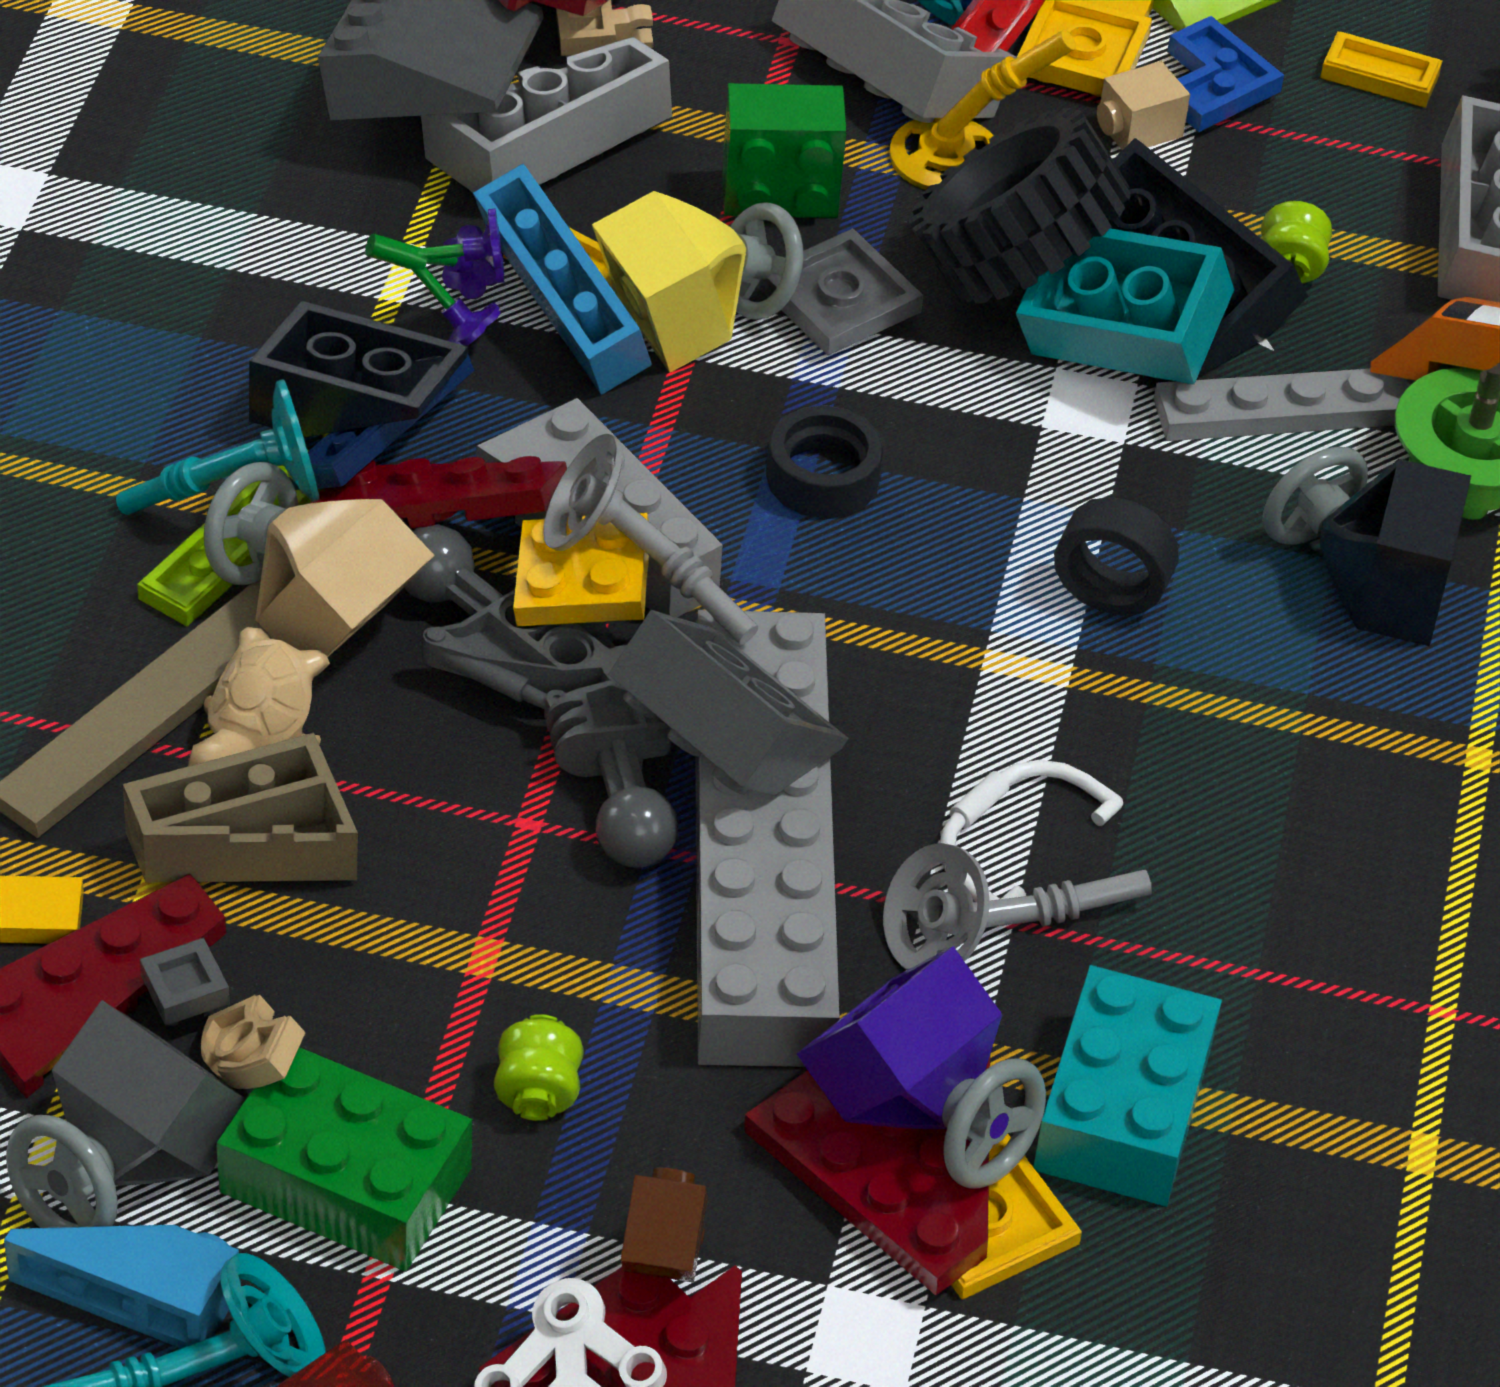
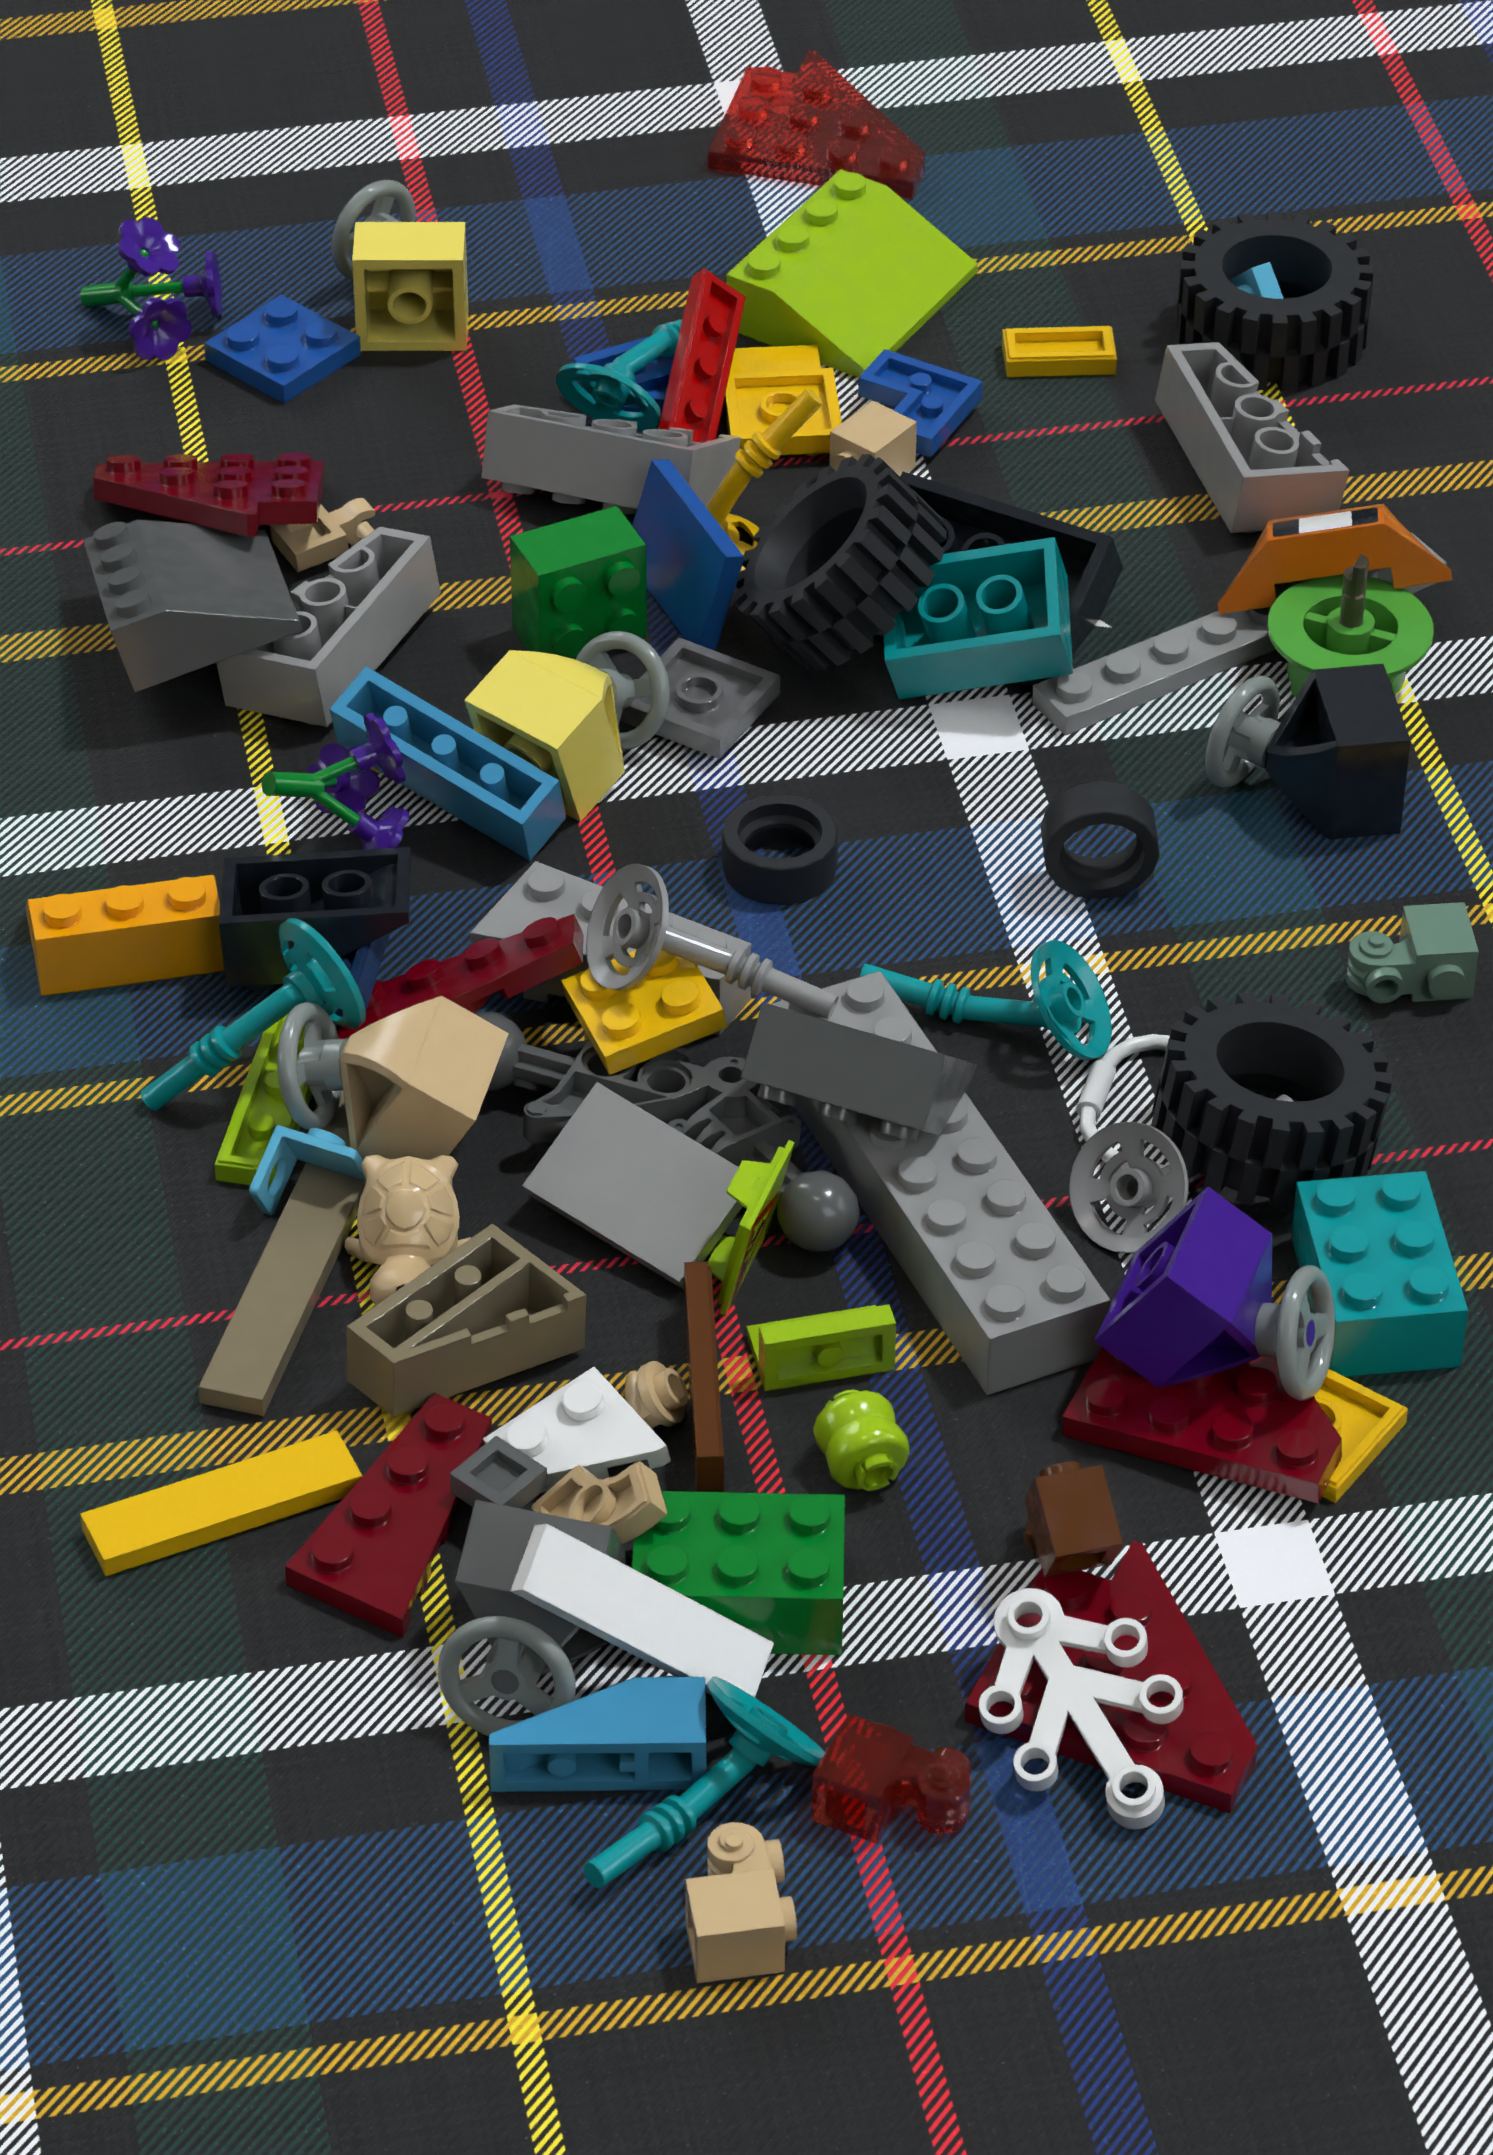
camera: 20 degrees left, 5 degrees down
(180, 339) = (126, 934): none -> light orange slope
(197, 600) = (287, 1147): none -> medium azure bracket
(200, 1167) = (637, 1612): none -> white tile
(289, 962) = (583, 1426): none -> white wing
(383, 955) = (656, 1394): none -> tan plate
(431, 956) = (703, 1378): none -> reddish brown tile
(487, 743) = (636, 1184): none -> light grey tile
(567, 812) = (757, 1189): none -> lime piece
(568, 959) = (824, 1346): none -> lime panel
(896, 153) = (688, 555): none -> blue tile
(976, 706) = (1055, 1006): none -> teal dish
(1100, 923) = (1260, 1141): none -> black tyre
(1300, 235) = (1086, 507): lime piece -> none
(1367, 788) = (1430, 962): none -> sand green brick

